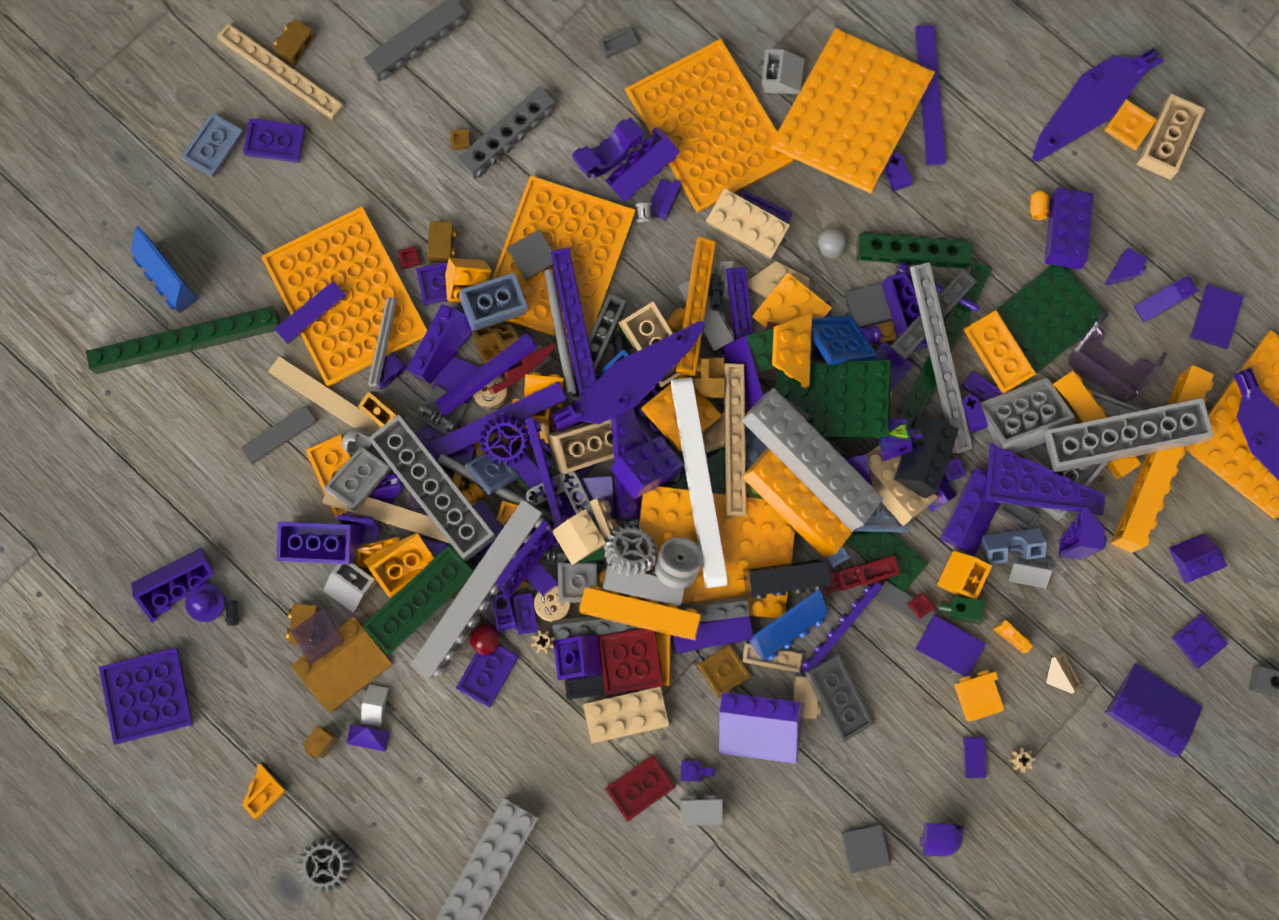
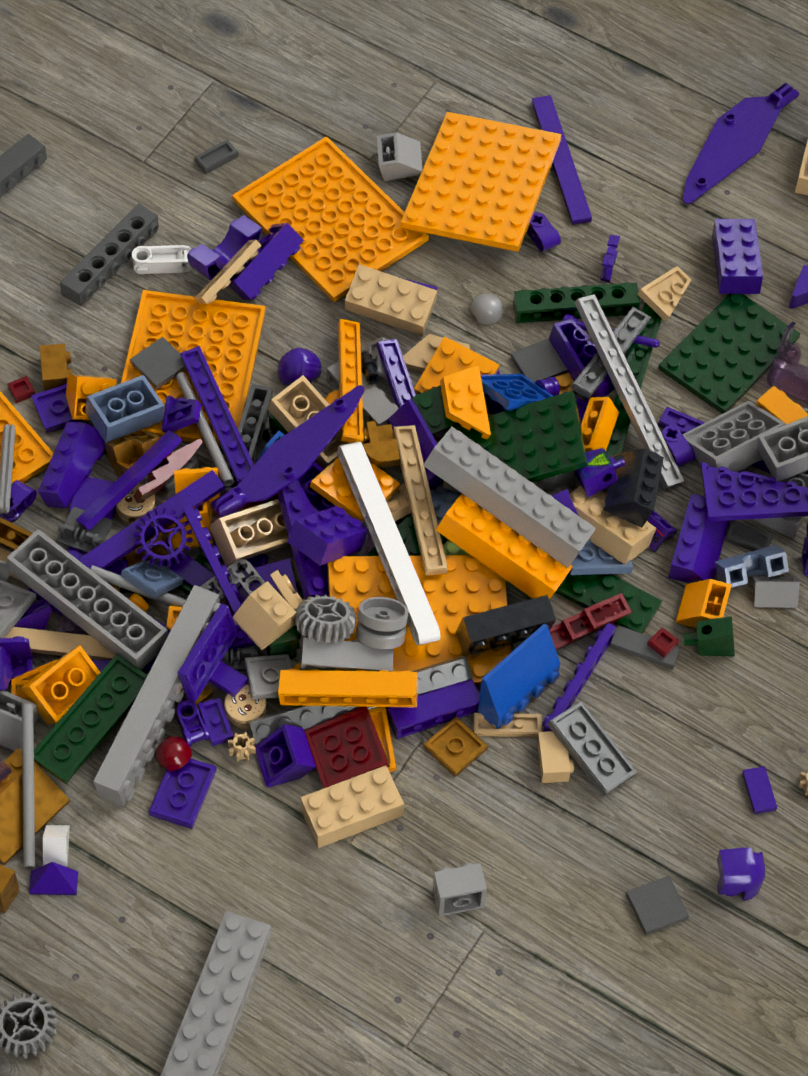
camera: 10 degrees left, 20 degrees down
(357, 653) = (28, 786): none -> light grey piece
(459, 139) = (58, 267): pearl gold plate -> none
(541, 312) = (180, 413): none -> dark purple wing
(551, 145) = (160, 259): none -> white piece
(584, 687) = (292, 789): black tile -> none
(610, 171) = (222, 278): none -> tan plate
(640, 206) = (280, 312): light grey bush -> none
(640, 788) = (383, 884): dark red tile -> none
(654, 277) = (298, 363): none -> dark purple piece
(664, 198) = (295, 293): dark purple panel -> none
(692, 771) = (442, 856): dark purple plate -> none
(760, 727) = (508, 790): slope -> none
(838, 558) = (560, 609): light blue tile -> none
(906, 388) = (598, 423): none -> light orange brick
(950, 646) = (705, 681): dark purple tile -> none
(951, 214) = (610, 258): none -> dark purple piece
(954, 470) = (668, 505): dark purple plate -> none
(979, 695) = (748, 722): light orange bracket -> none
(996, 254) = (665, 292): none -> tan wing
(999, 352) = (691, 382): light orange tile -> none
(1009, 633) = (771, 655): light orange wing -> none
(1039, 205) = (701, 242): light orange brick -> none
(1130, 125) = (779, 156): light orange plate -> none

